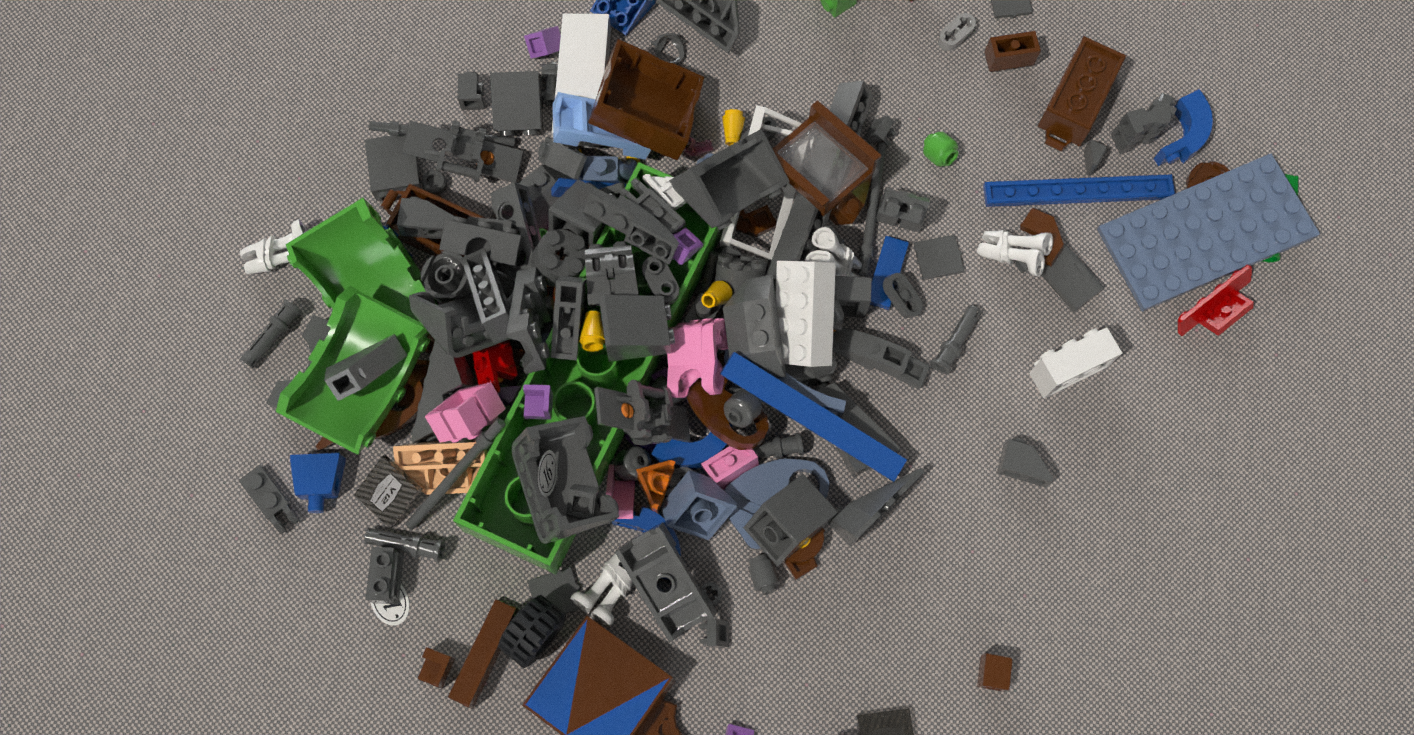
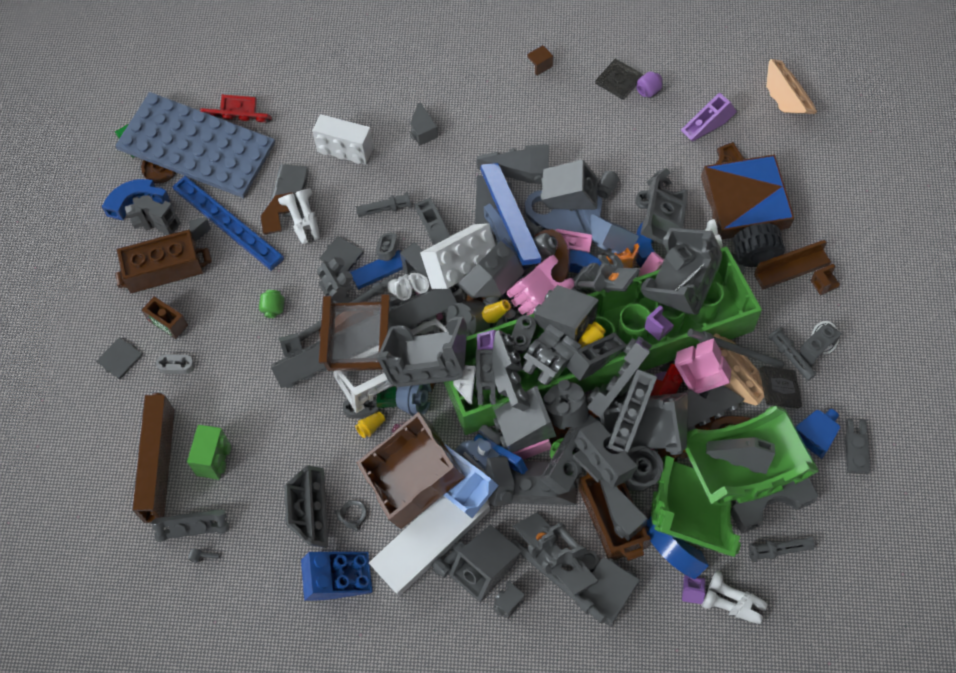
camera: 130 degrees left, 10 degrees down
(543, 42) = (426, 592): medium lavender panel -> none

